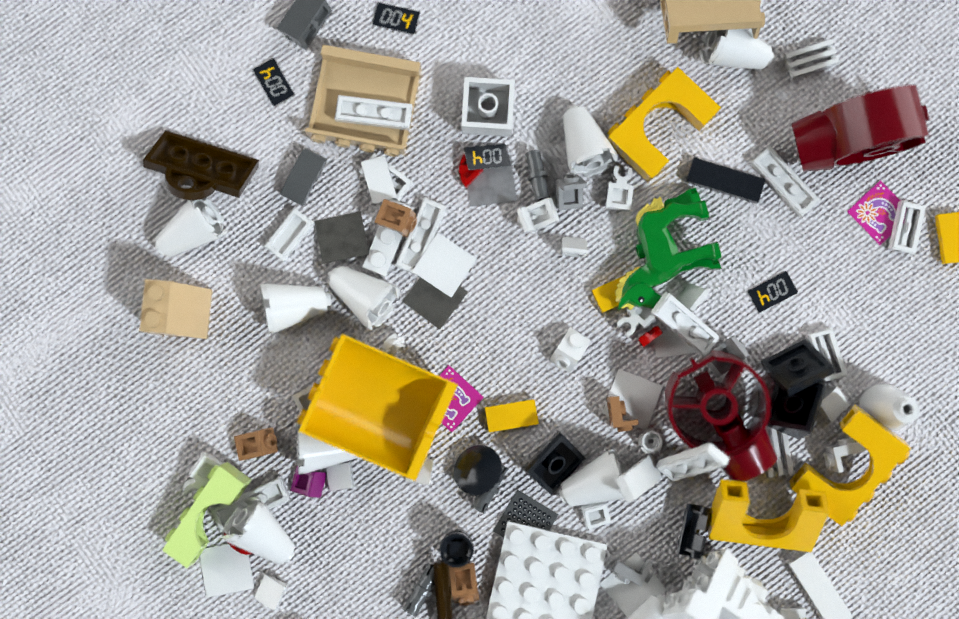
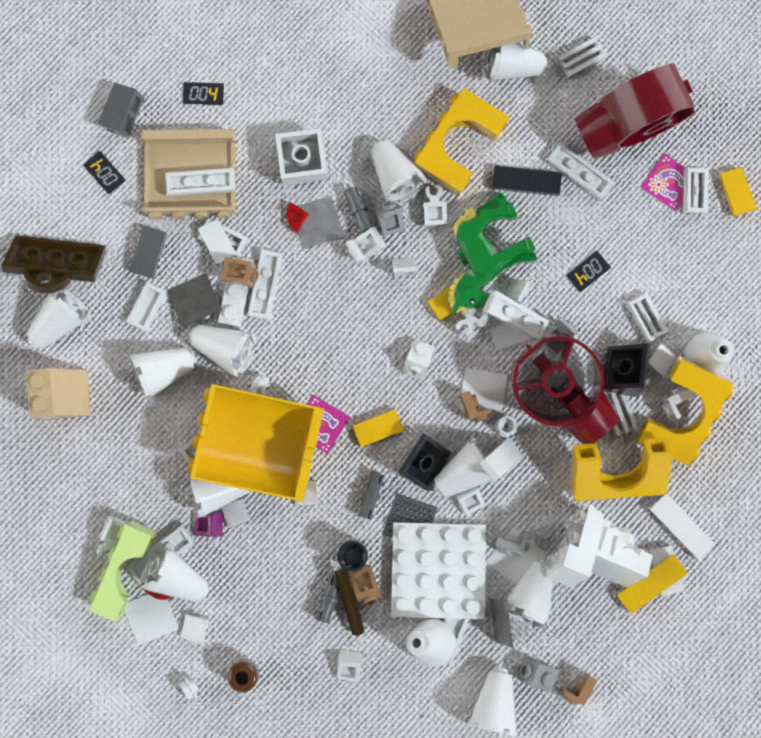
camera: 15 degrees left, 0 degrees up
(256, 444) = (154, 499): medium nougat bracket -> none
(432, 302) = (288, 336): clear smoke sticker -> none
(444, 265) = (291, 306): white sticker -> none
(478, 470) = (357, 482): black dish -> none
(487, 156) = (310, 201): black sticker -> none
(649, 336) = (486, 333): red tile -> none
(692, 462) = (545, 435): white tile -> none
(695, 519) = (559, 507): black hinge -> none
(797, 367) = (622, 333): black plate -> none

